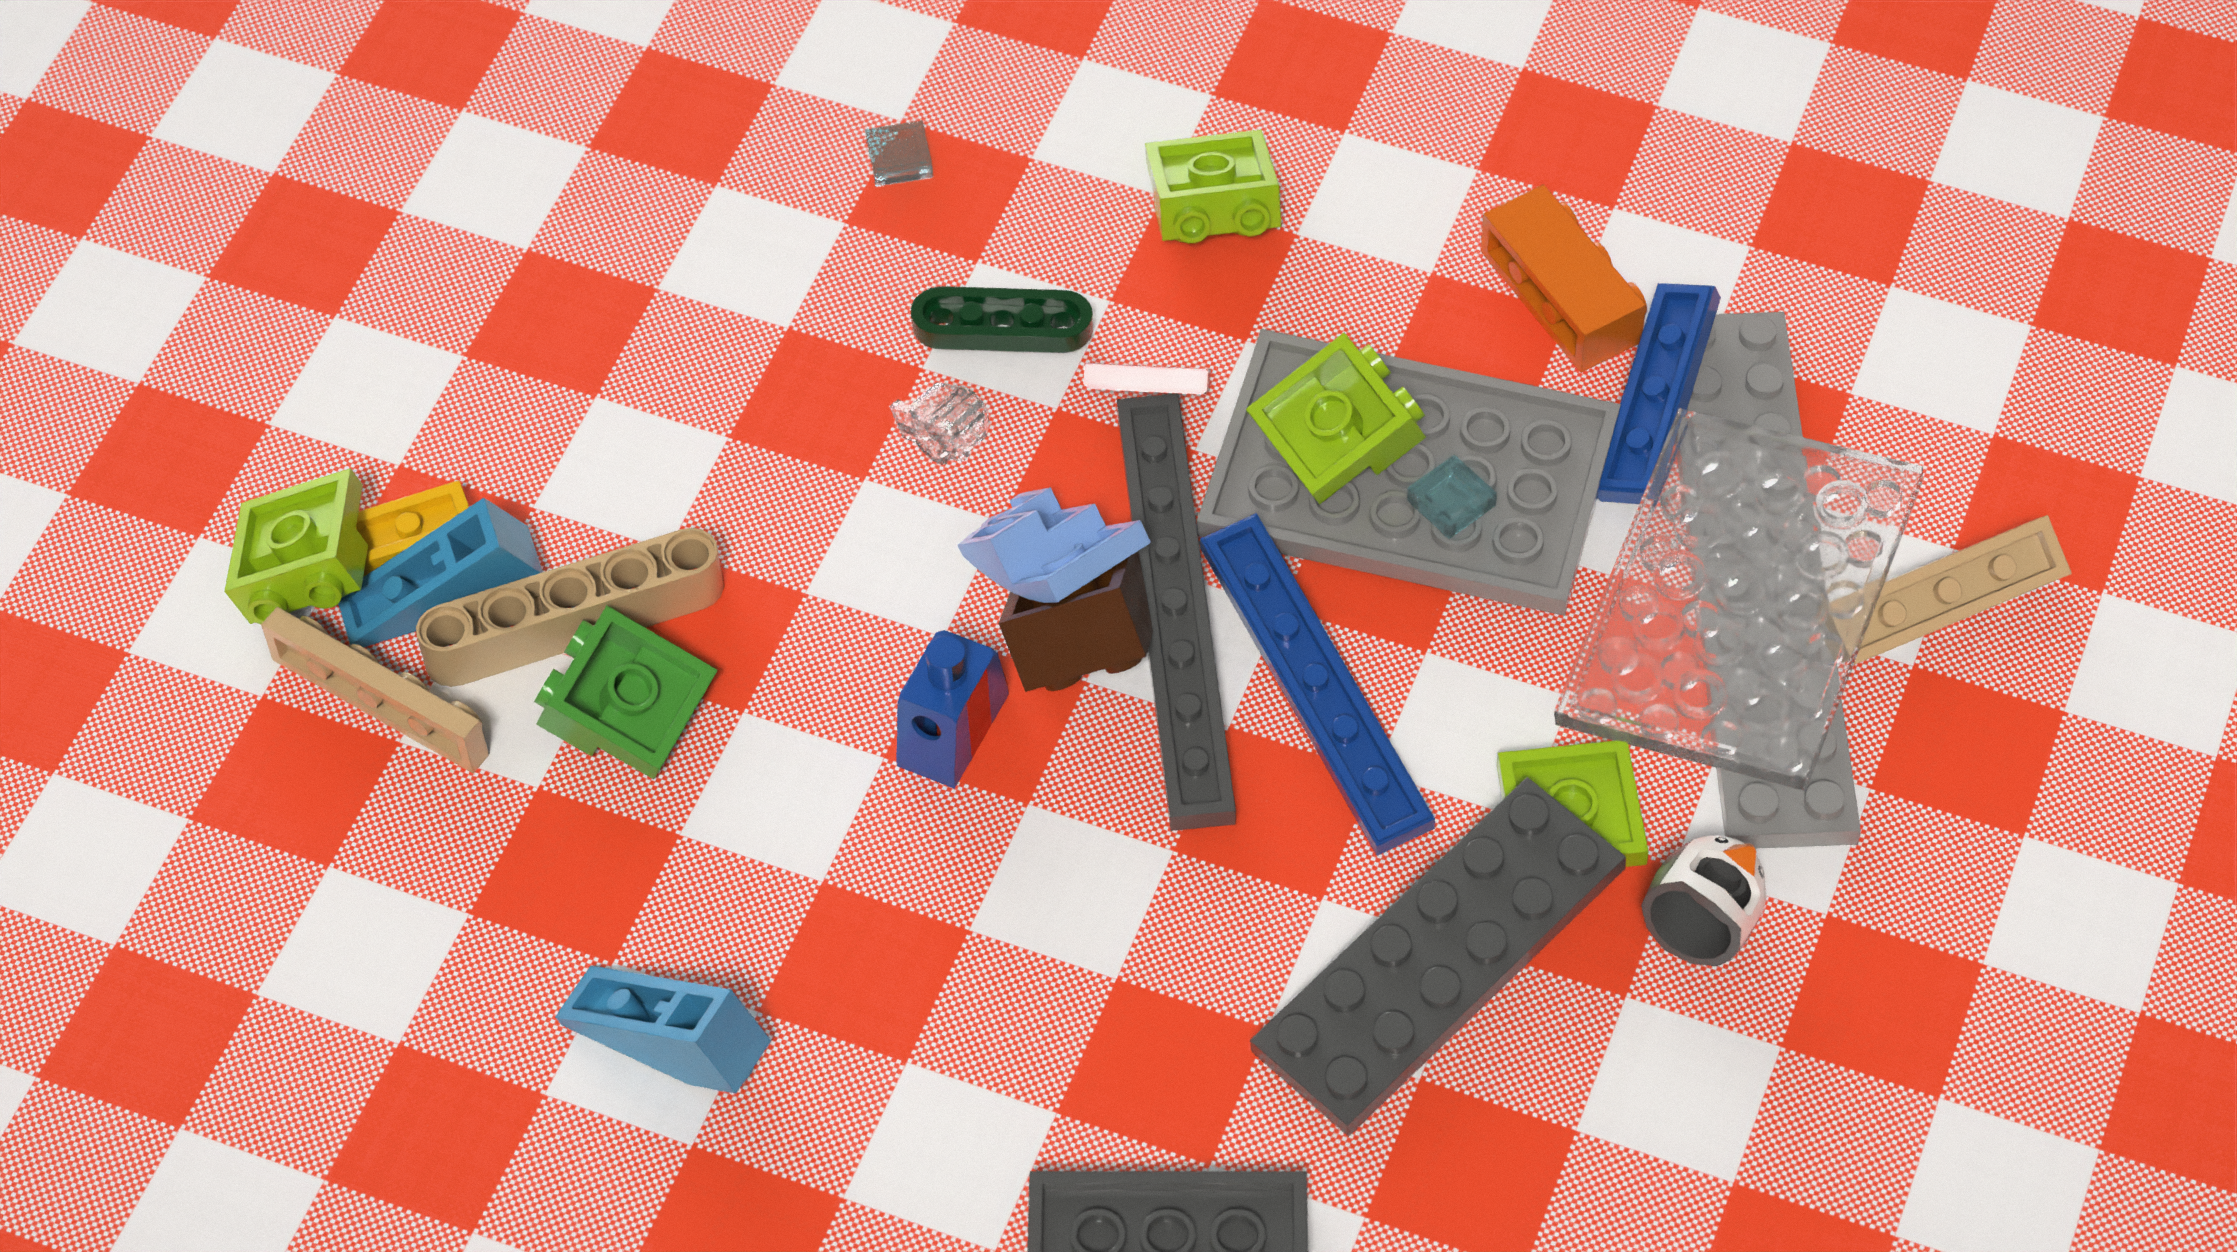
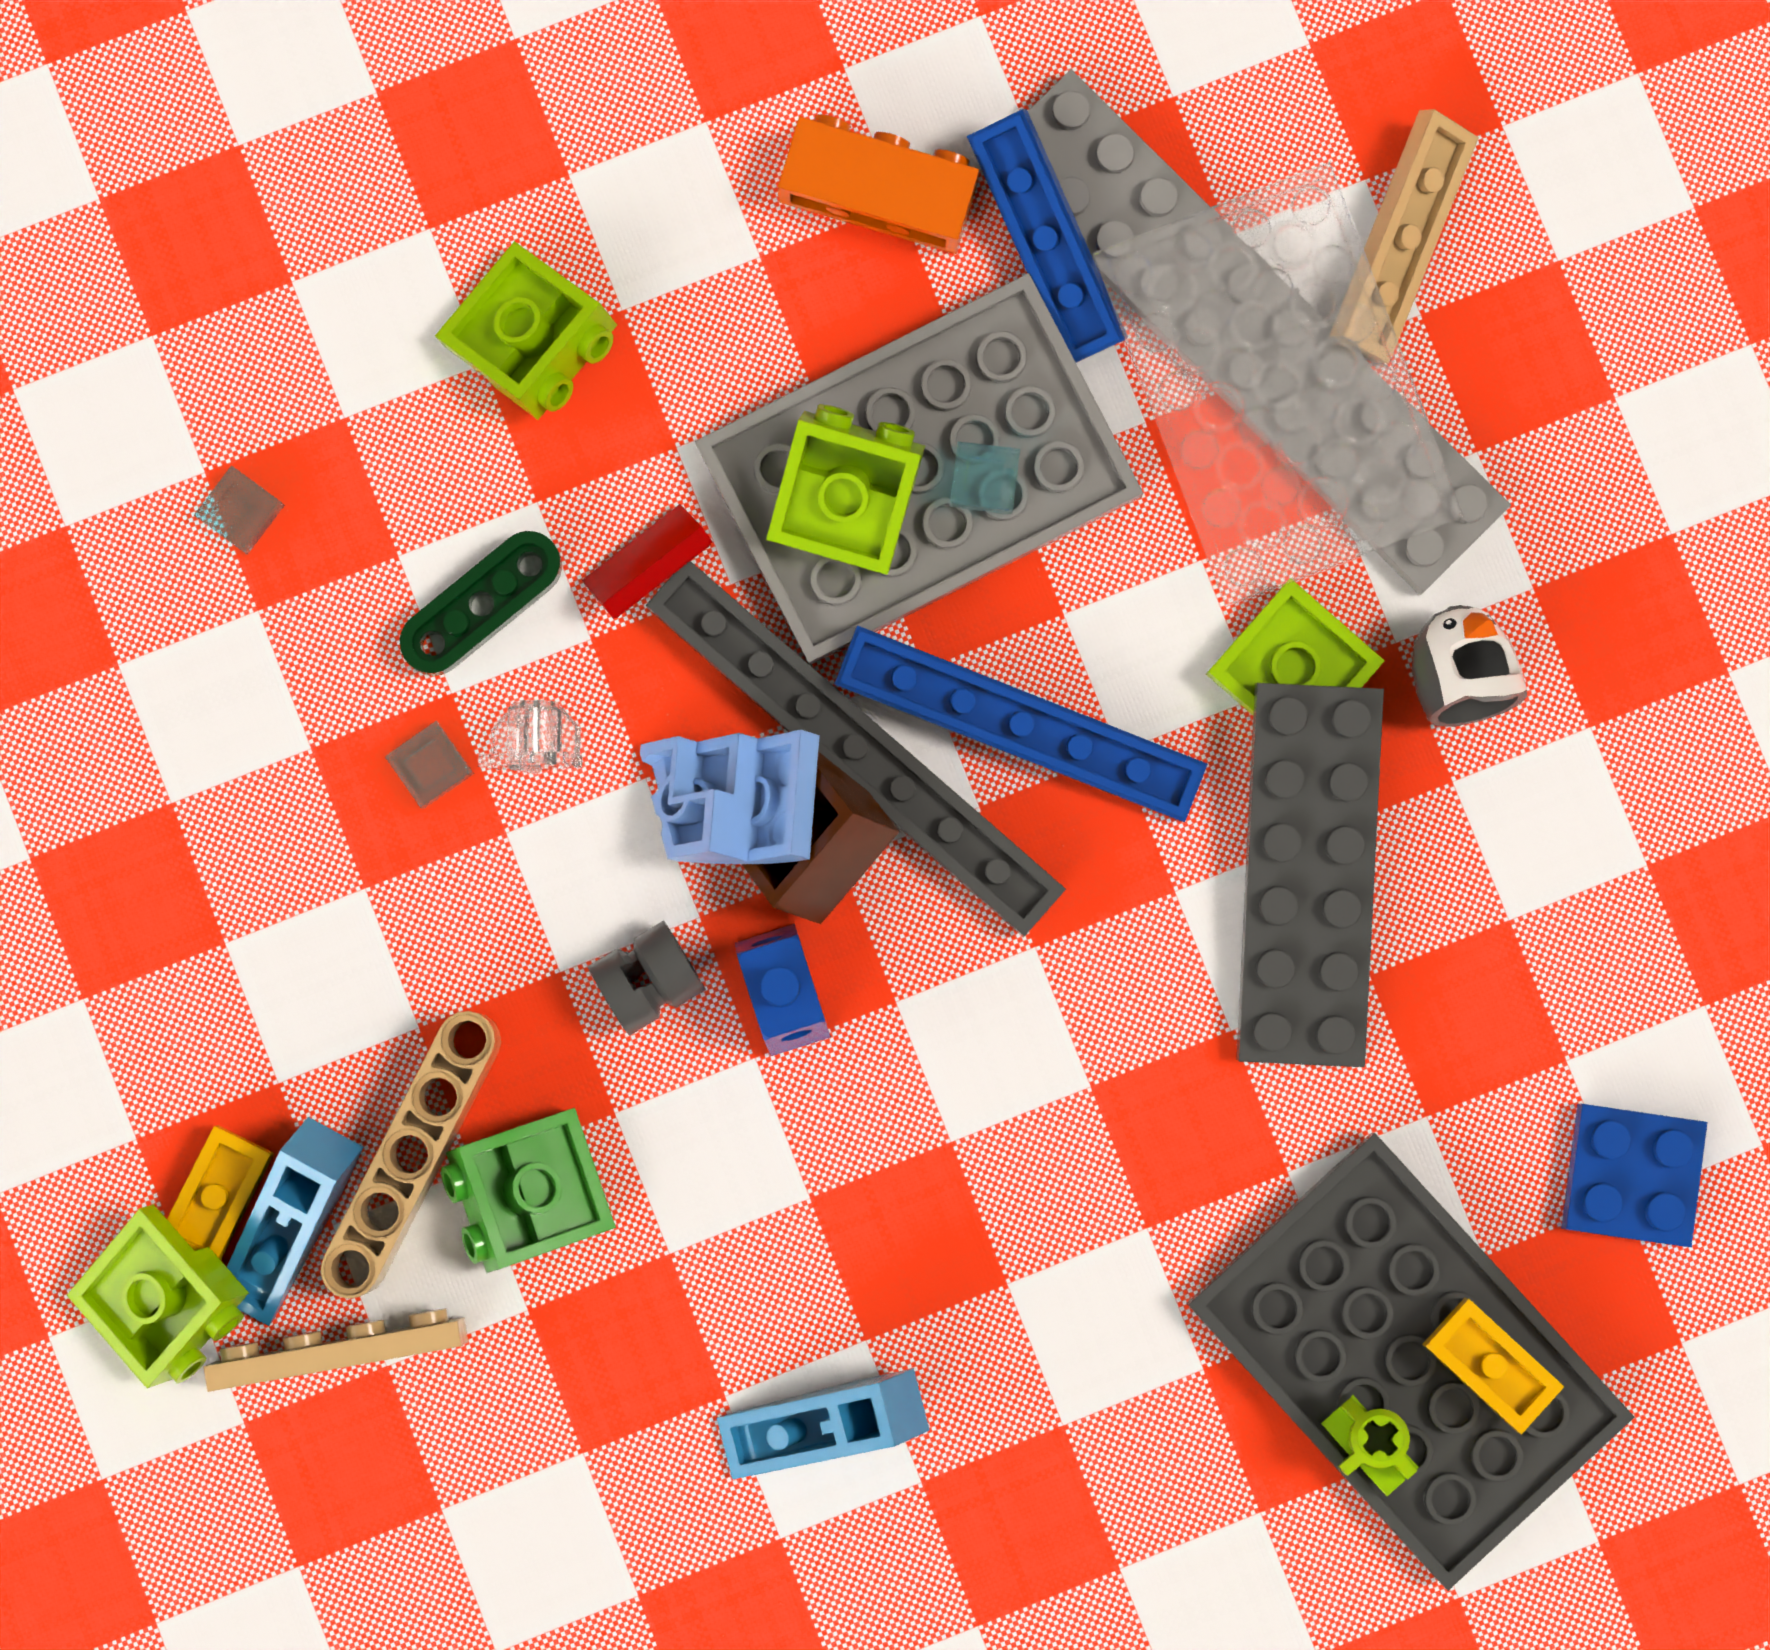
camera: 50 degrees left, 30 degrees up
(857, 391) = (429, 765): none -> clear light blue tile
(860, 624) = (665, 964): none -> dark grey wheel

